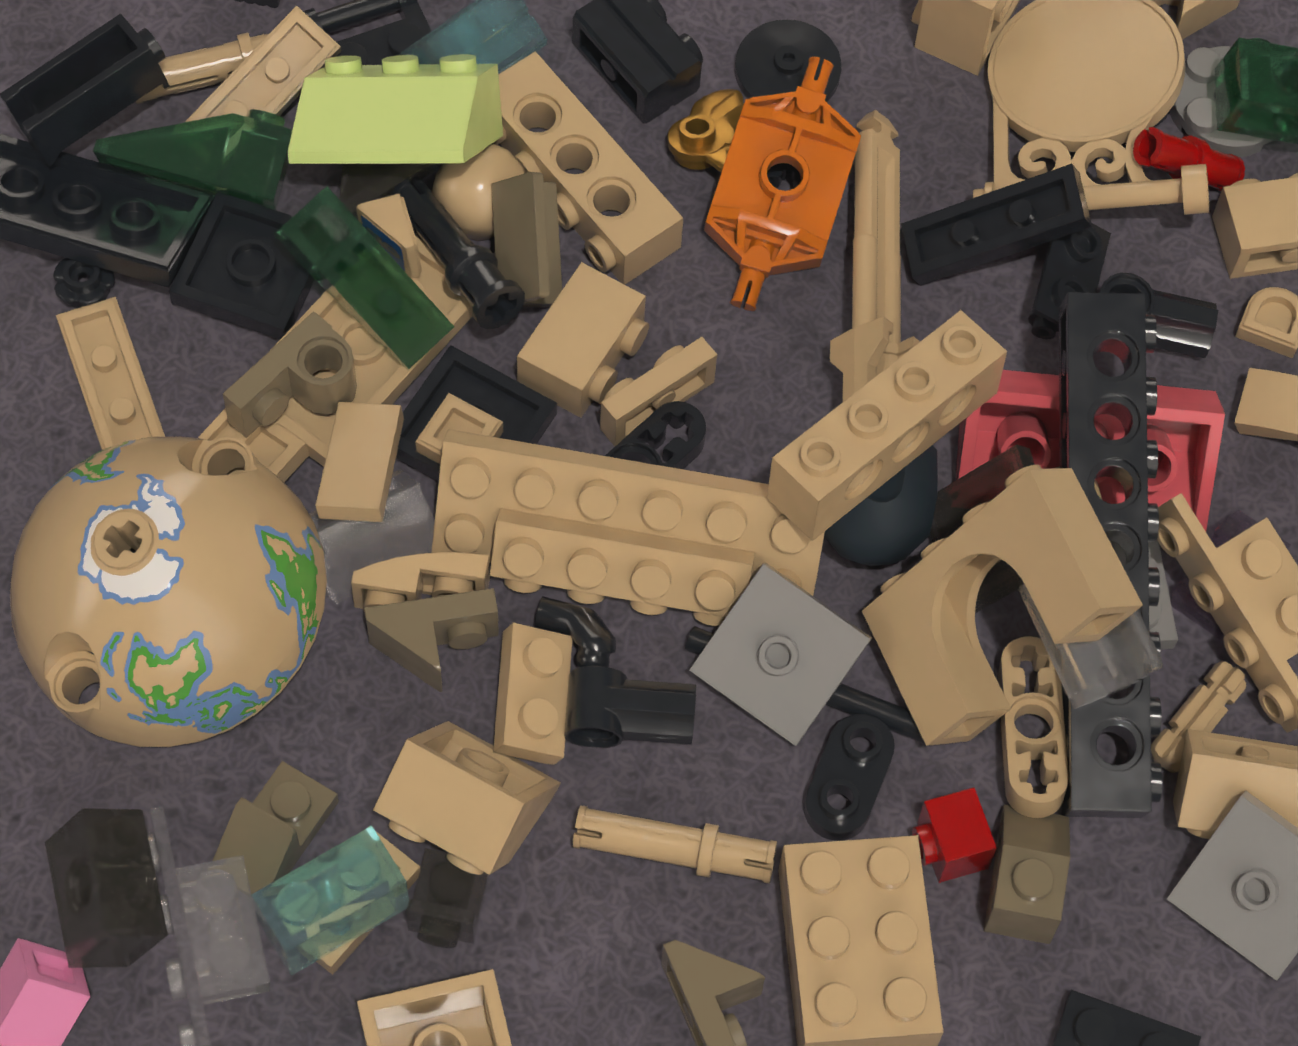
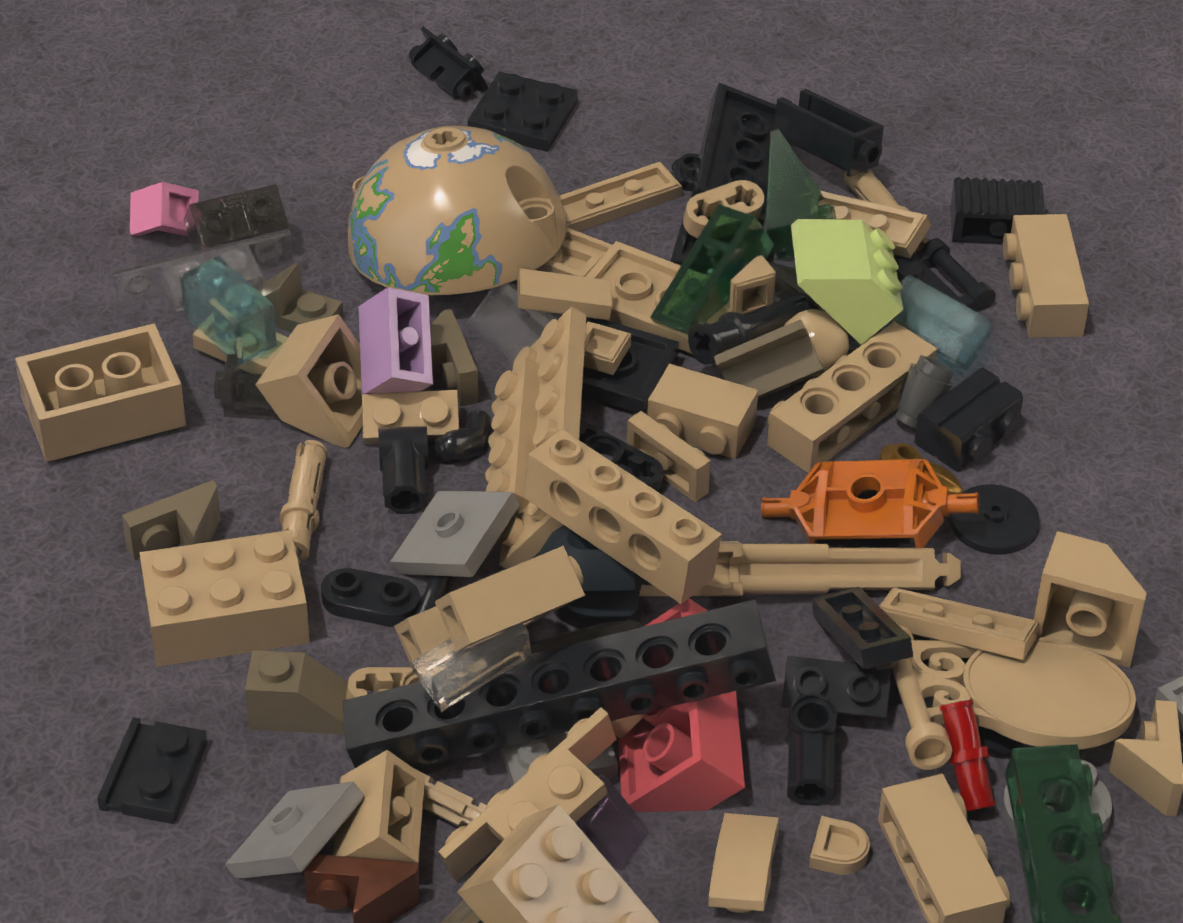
camera: 85 degrees right, 20 degrees down
(228, 240) = (724, 195): none -> tan beam
(288, 371) = (632, 255): dark tan plate -> none
(419, 574) = (484, 345): tan slope -> none
(450, 680) = (395, 342): none -> lavender brick
(595, 81) = (923, 386): none -> dark grey cone
(954, 835) = (327, 642): red plate -> none
(971, 133) = (961, 623): none -> tan tile

